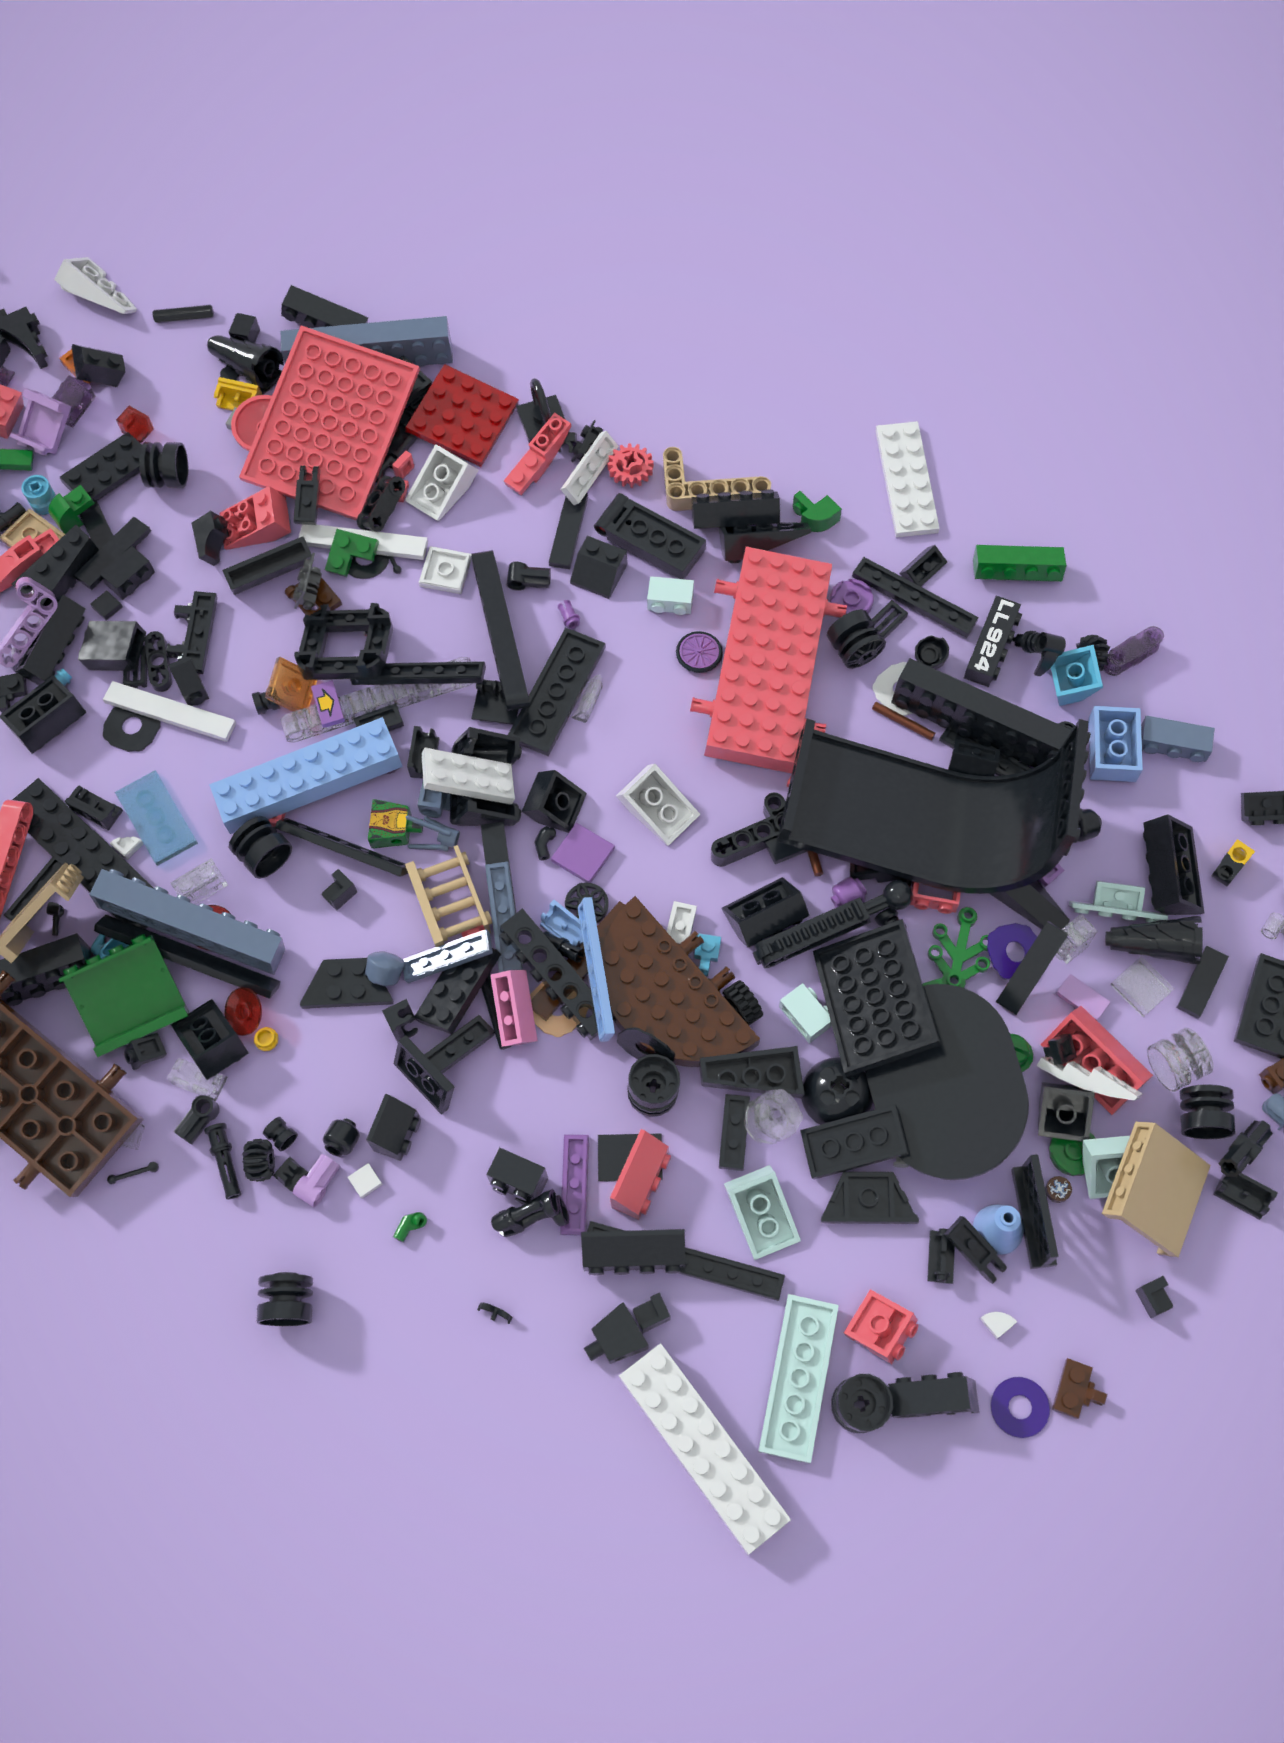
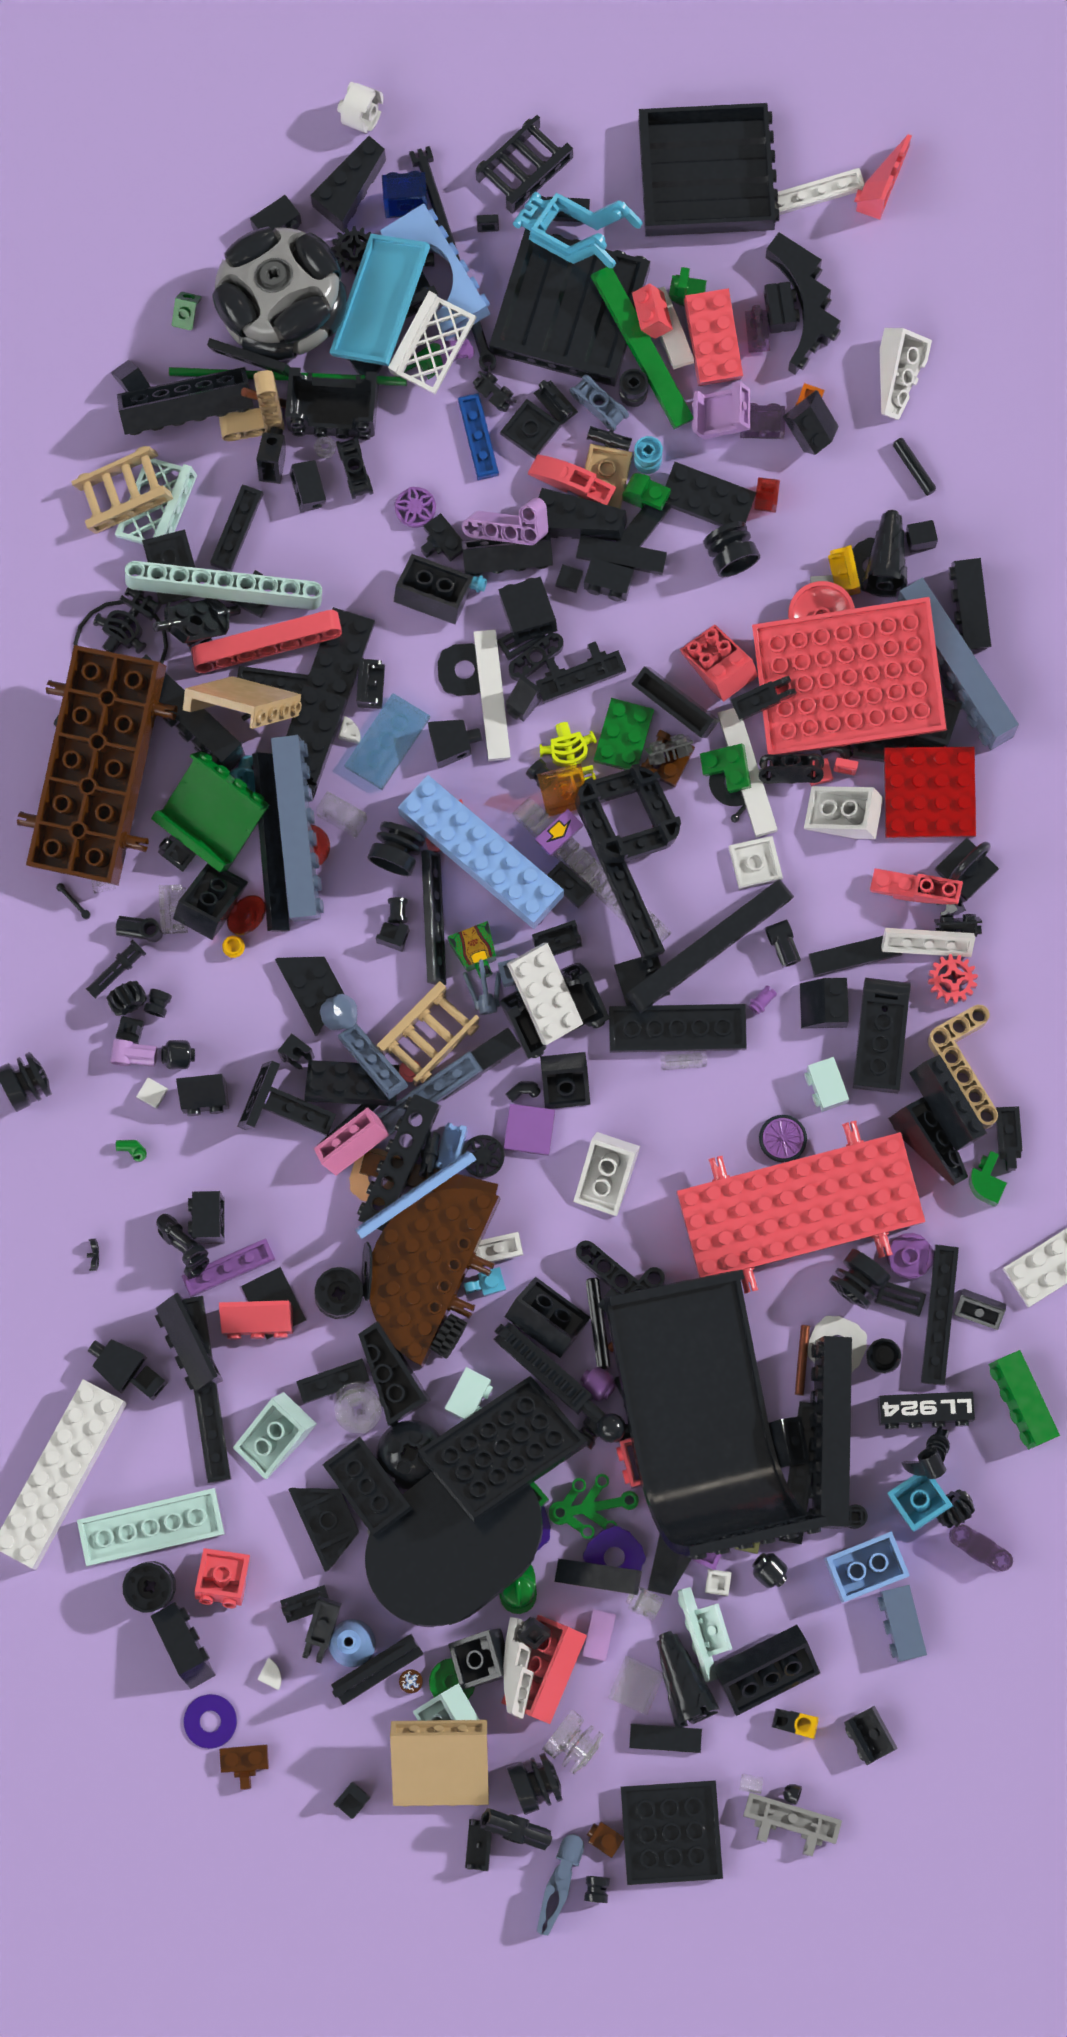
camera: 65 degrees right, 10 degrees up
(189, 761) = (451, 740): none -> black torso
(209, 536) = (679, 631): black arch -> none
(251, 675) = (566, 742): none -> neon yellow piece
(271, 622) = (623, 734): none -> green plate
(317, 875) = (397, 910): none -> black bush
(788, 481) = (1009, 1135): none -> black hinge
(791, 872) = (597, 1323): none -> black axle
(1075, 875) = (718, 1582): none -> white tile

